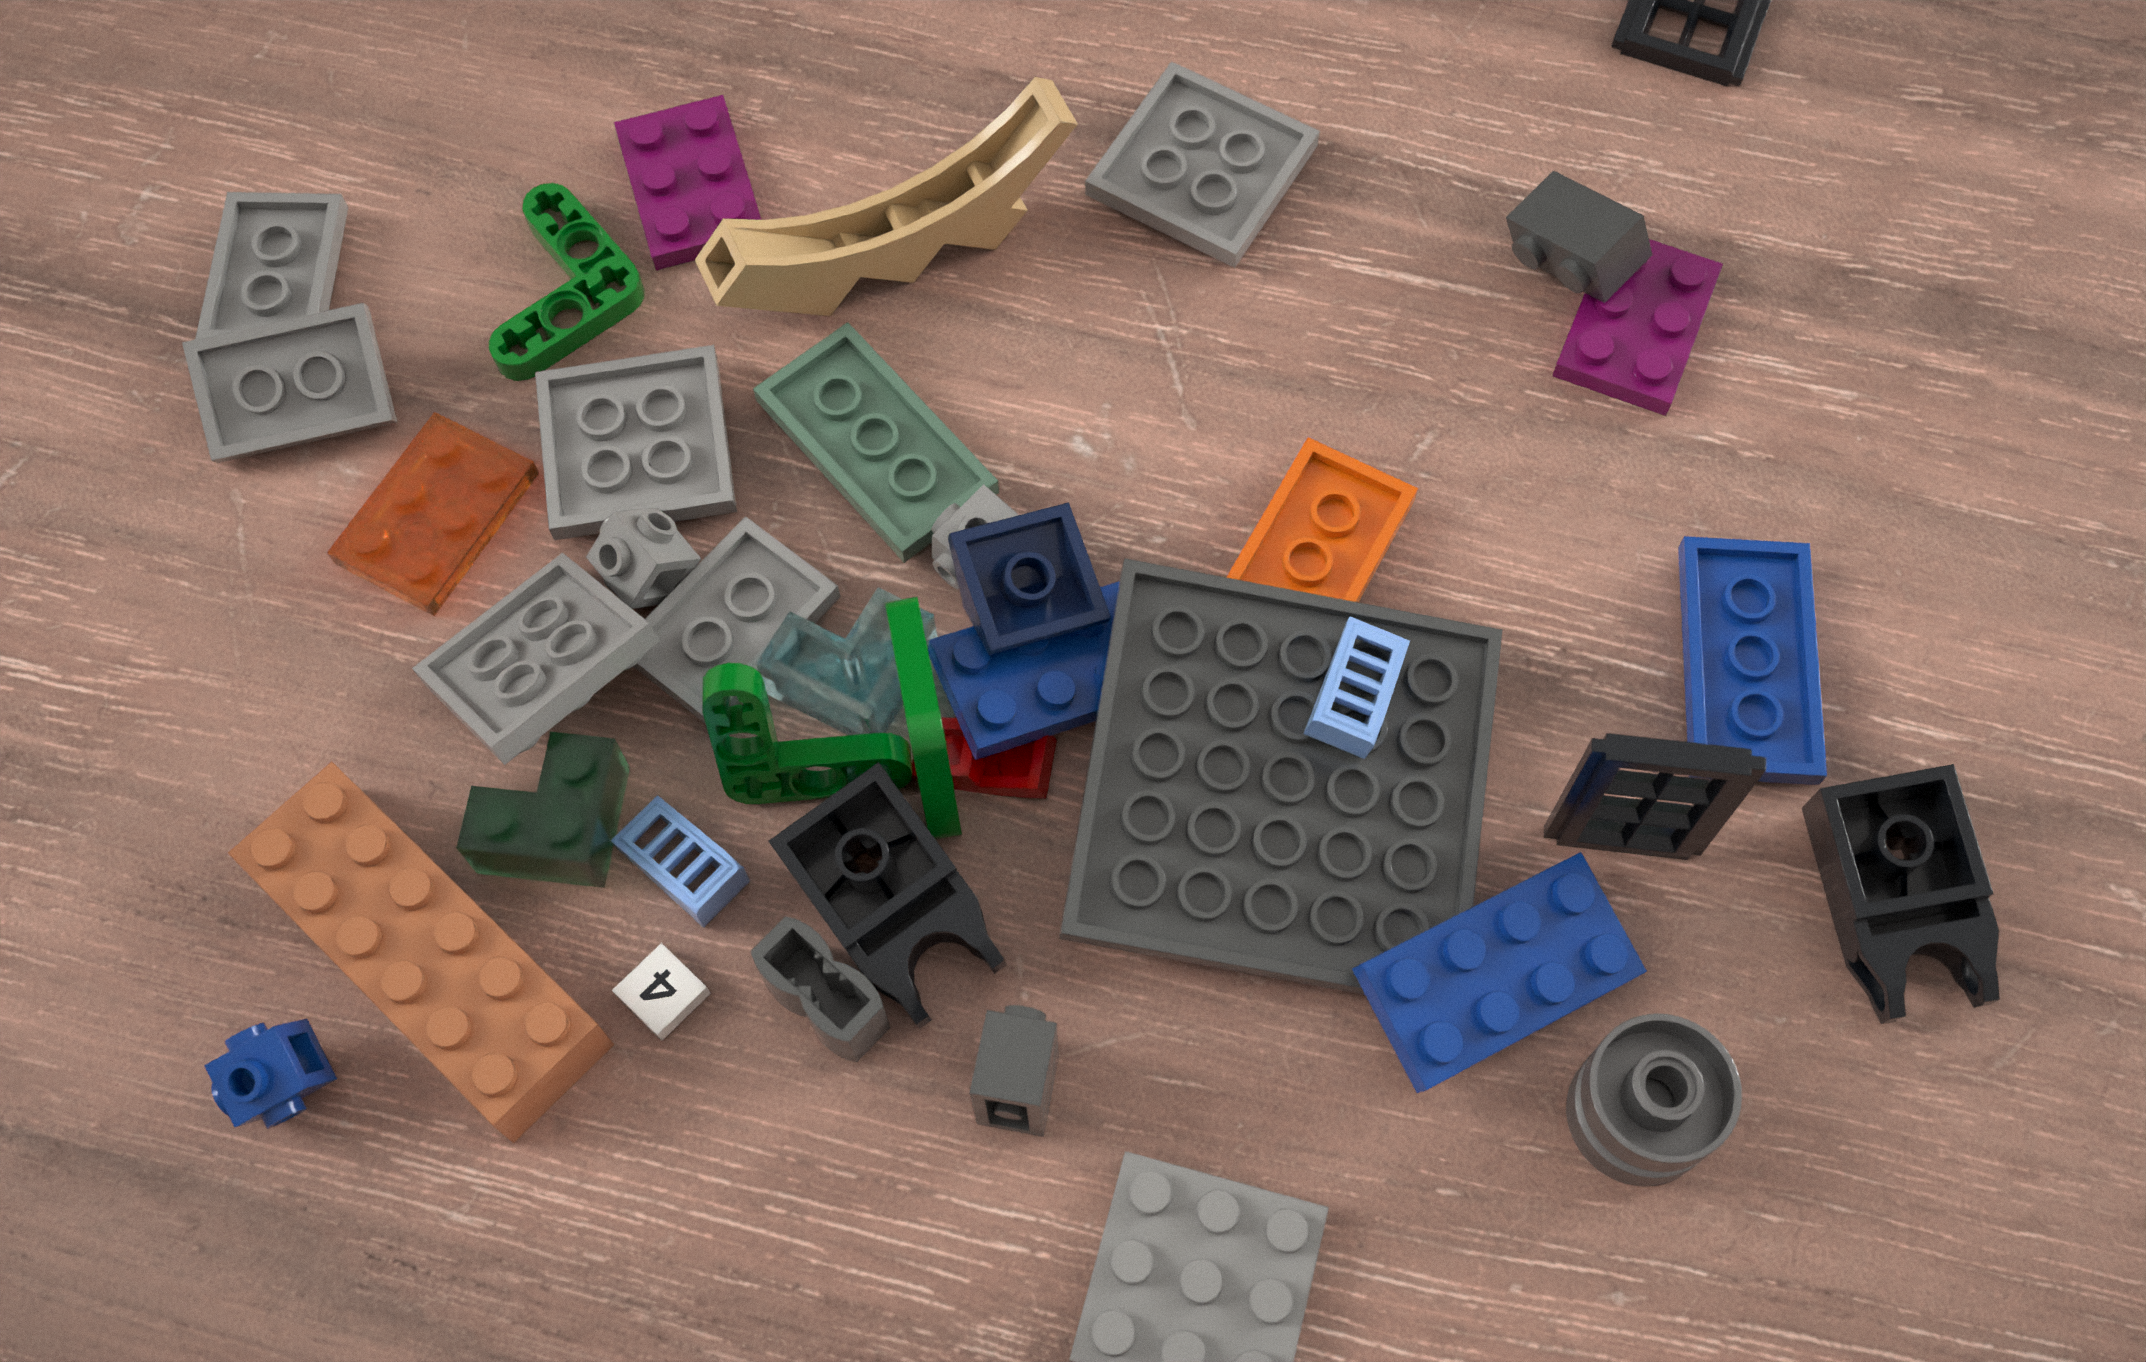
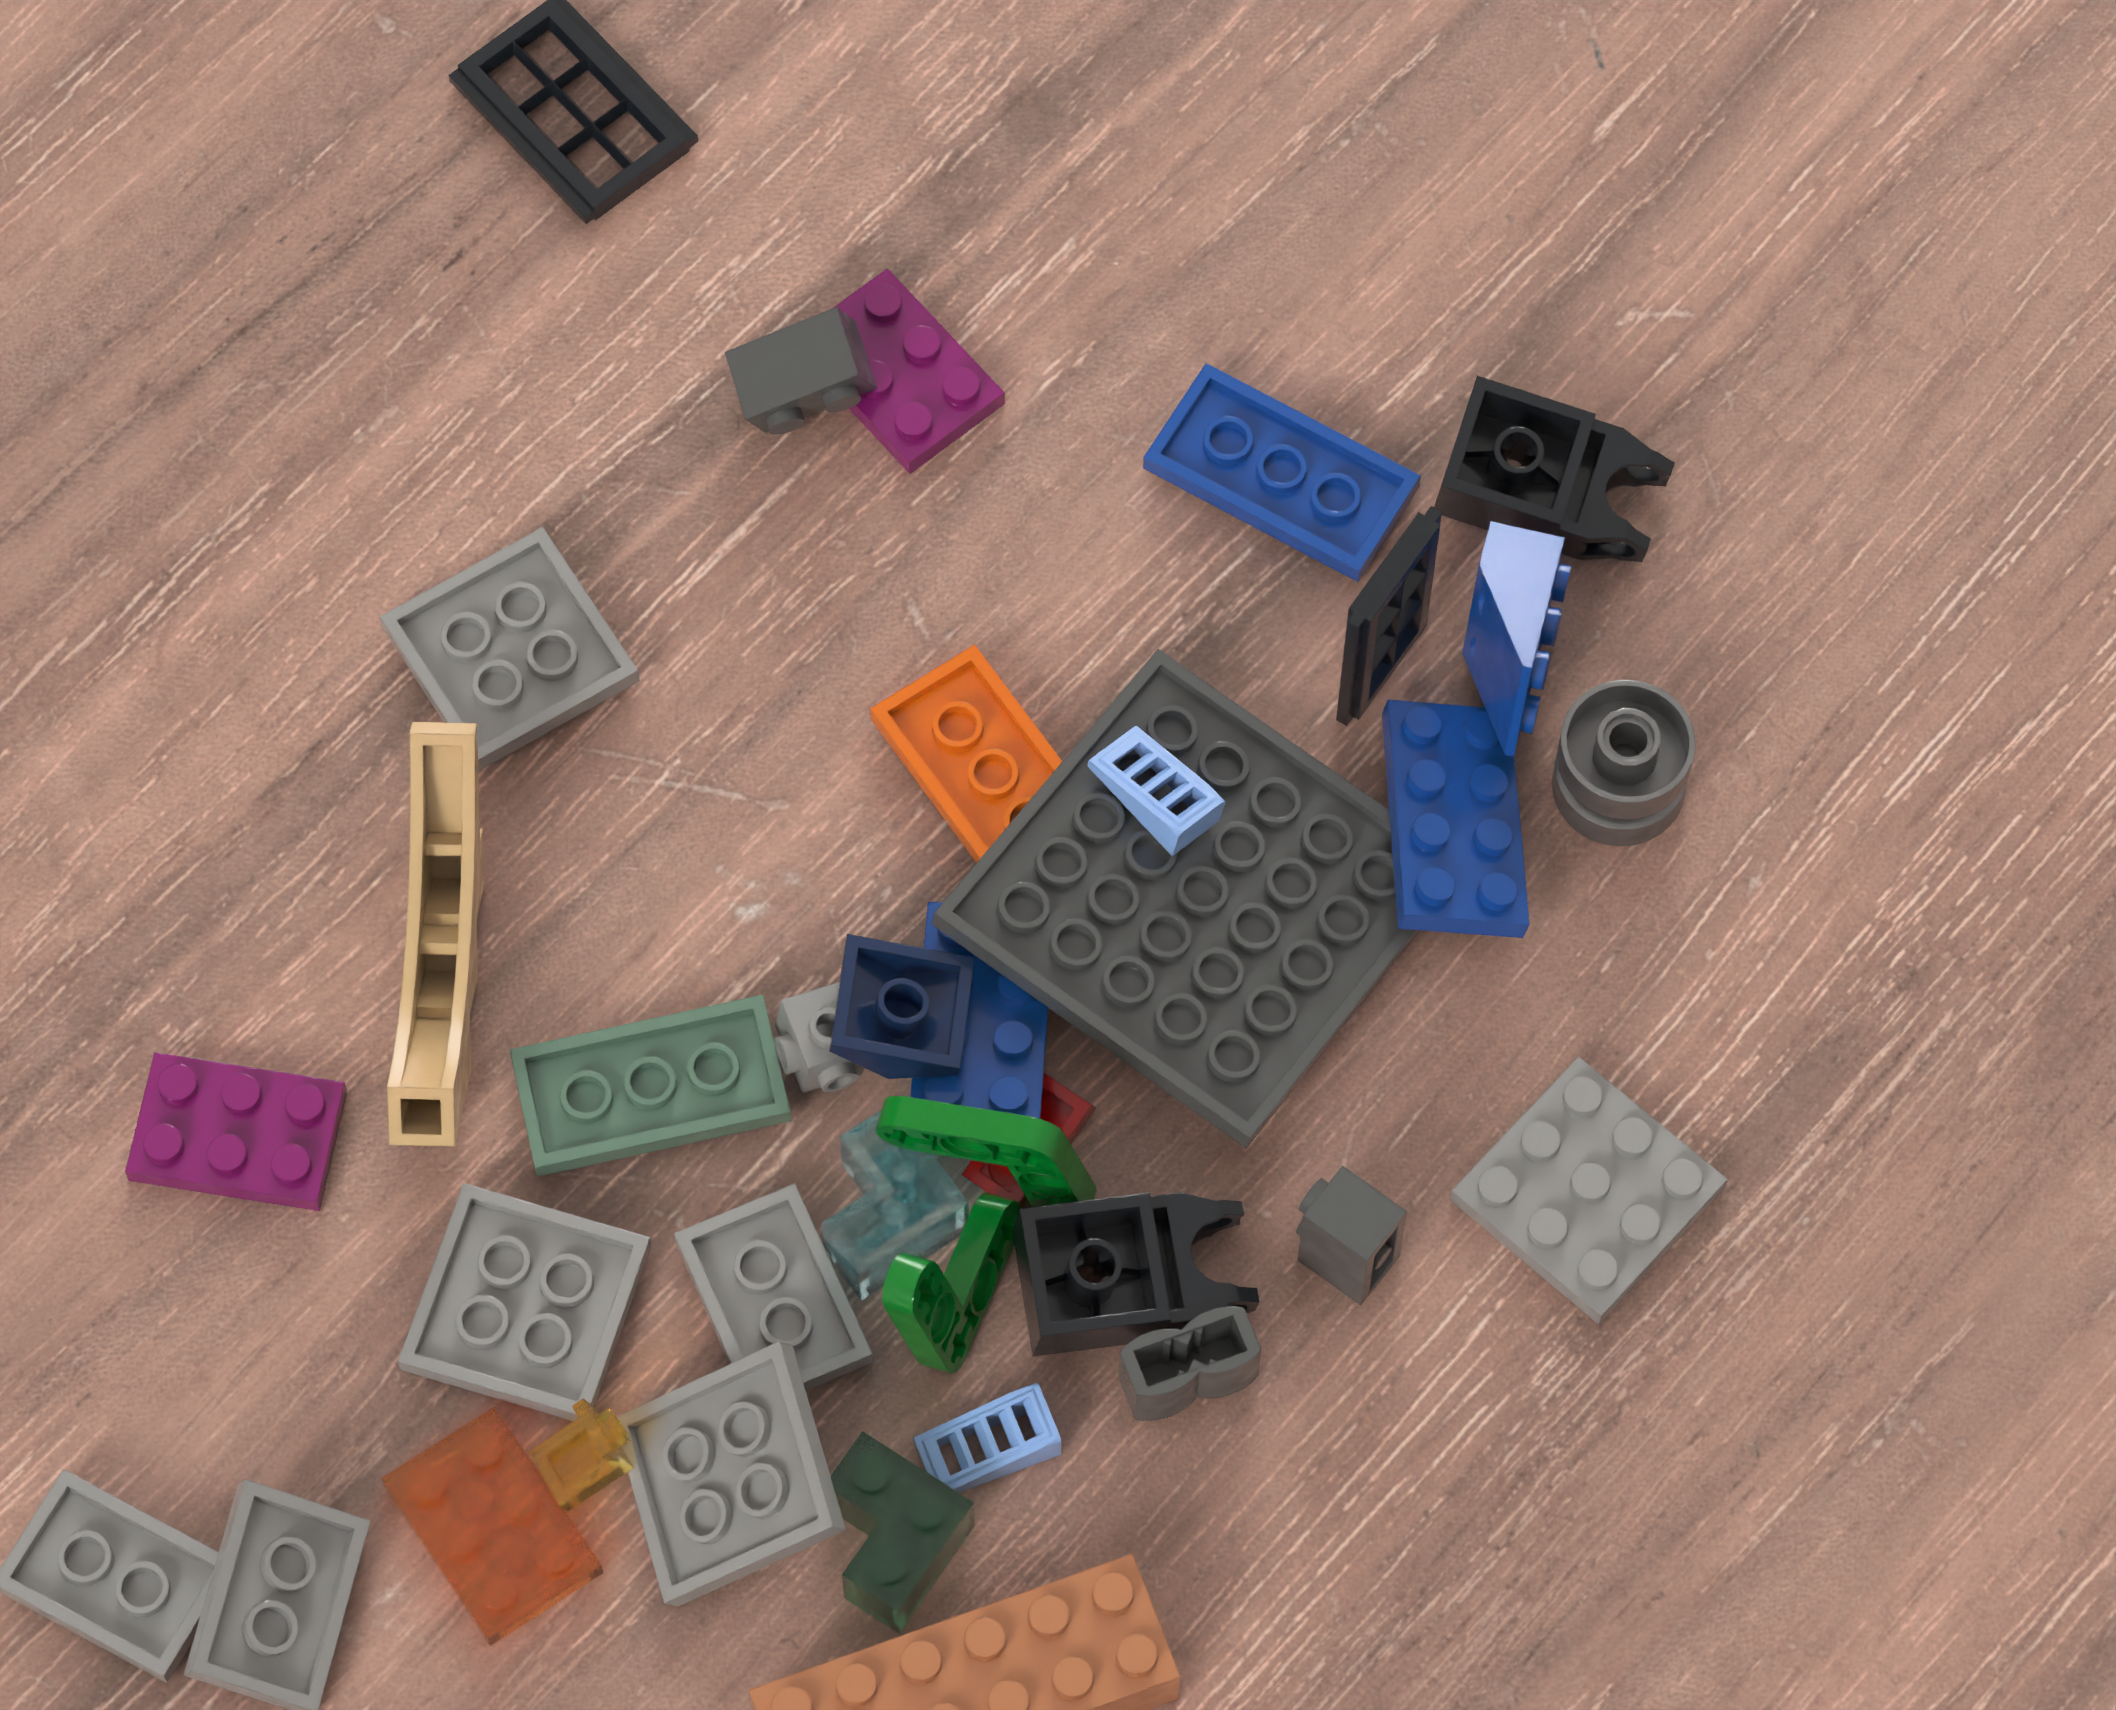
camera: 65 degrees left, 0 degrees up
(514, 543) = (583, 1455): none -> clear yellow bracket
(587, 277) = (295, 1275): green beam -> none
(642, 556) = (666, 1341): light grey brick -> none
(661, 991) = (1107, 1511): white tile -> none
(1731, 923) = (1511, 622): none -> blue slope

